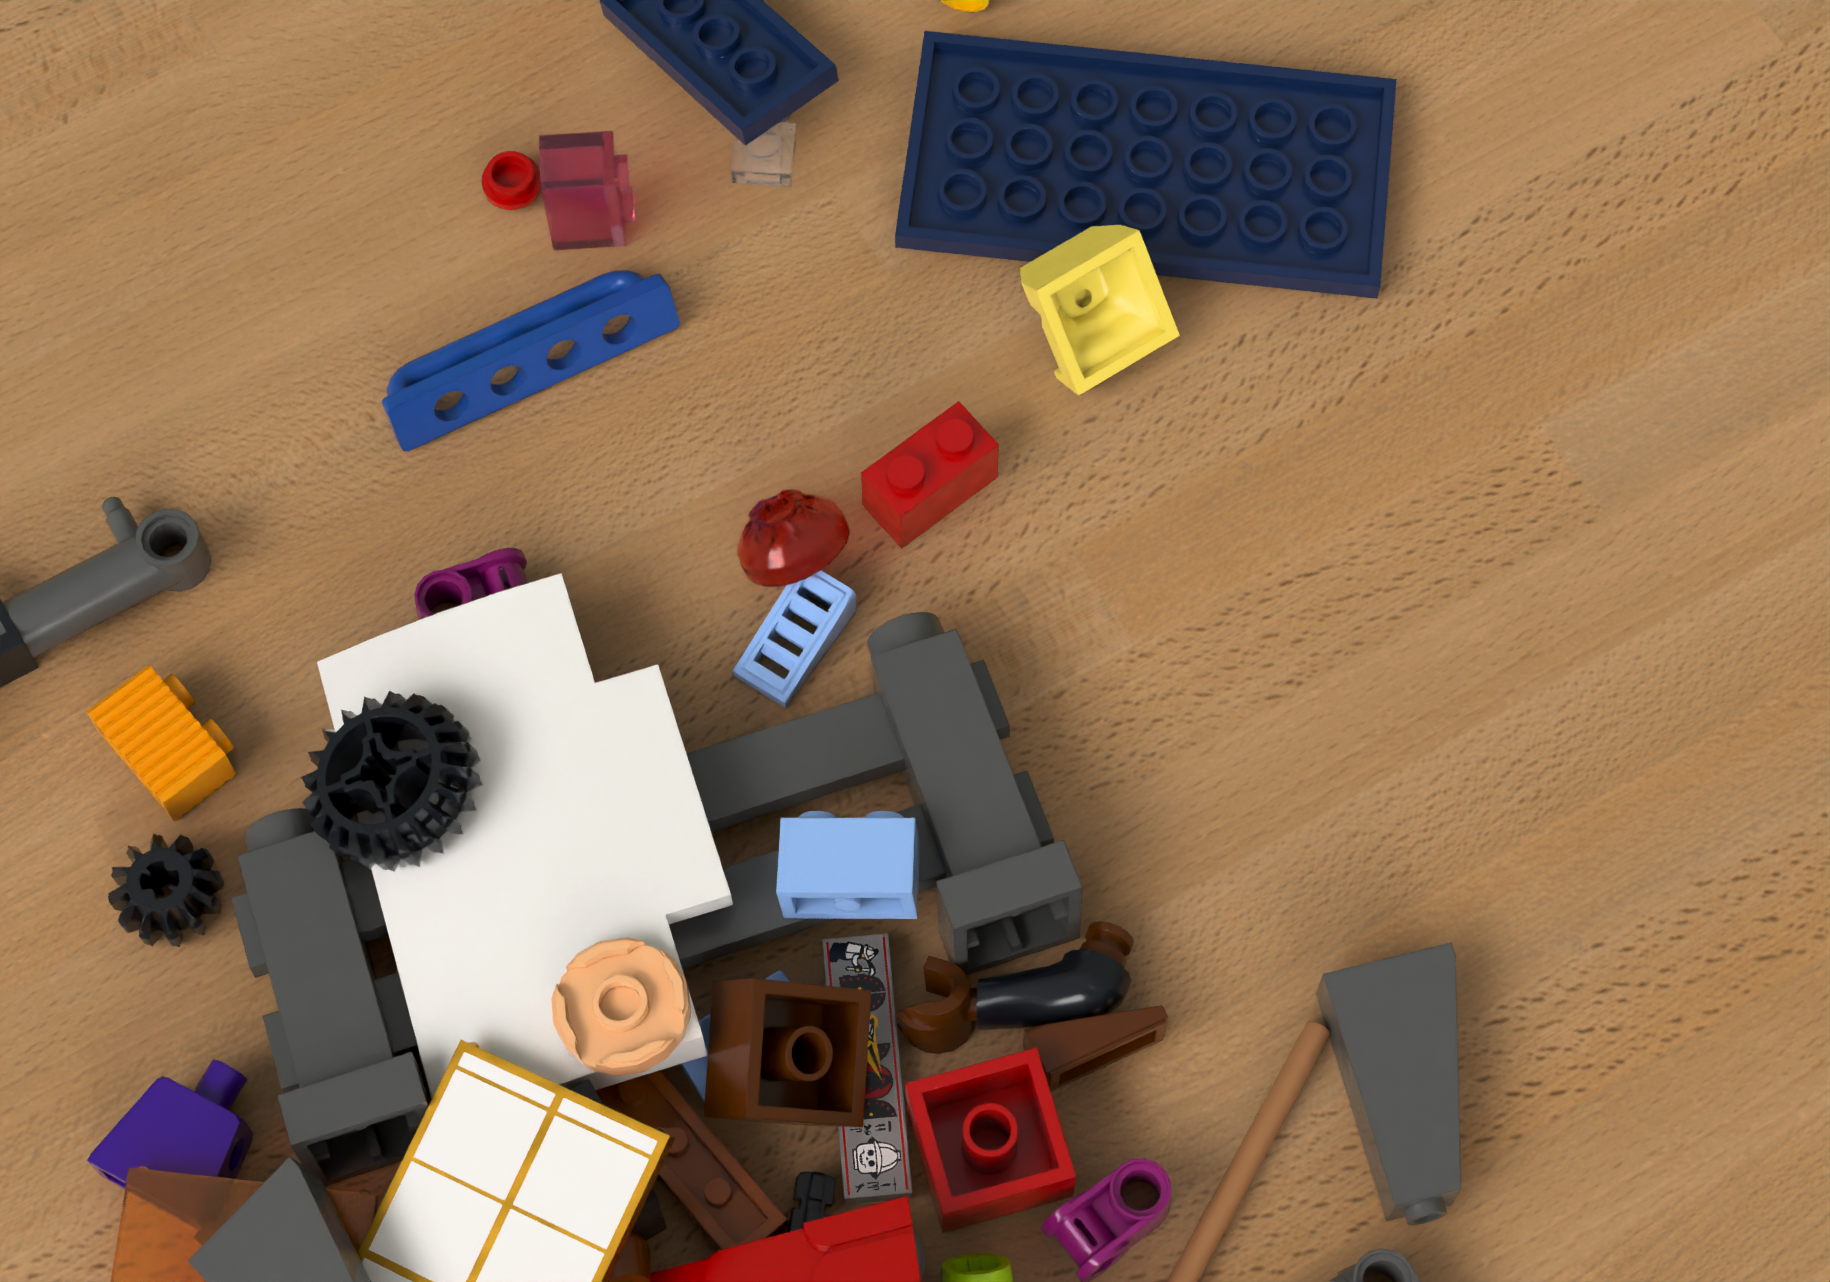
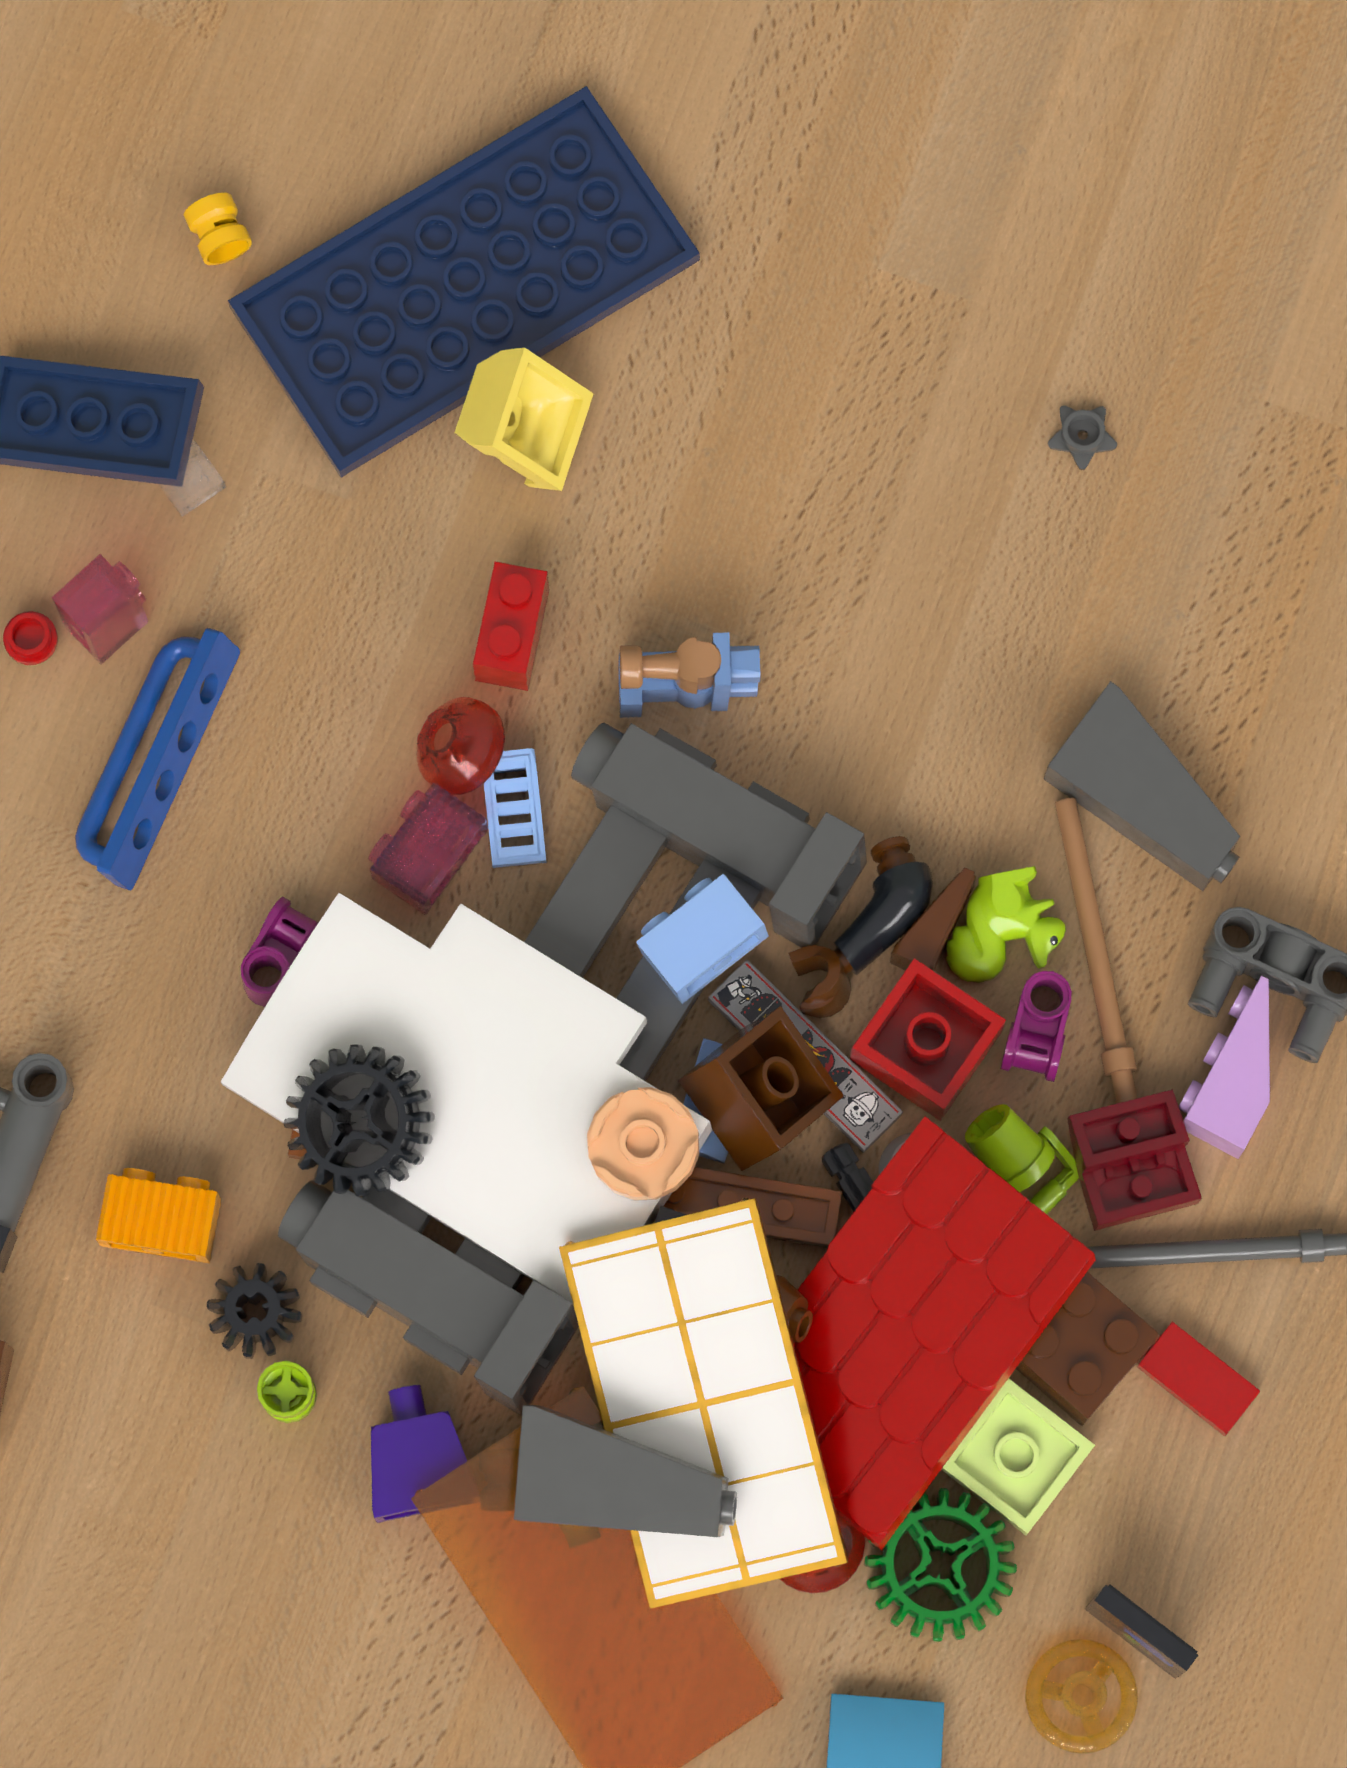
camera: 40 degrees left, 10 degrees up
(117, 974) = (281, 1385): none -> lime wheel
(686, 608) = (427, 847): none -> clear pink brick
(1051, 631) = (691, 675): none -> hips
(1159, 1078) = (1001, 913): none -> lime animal
(1618, 692) = (1082, 420): none -> dark grey plate

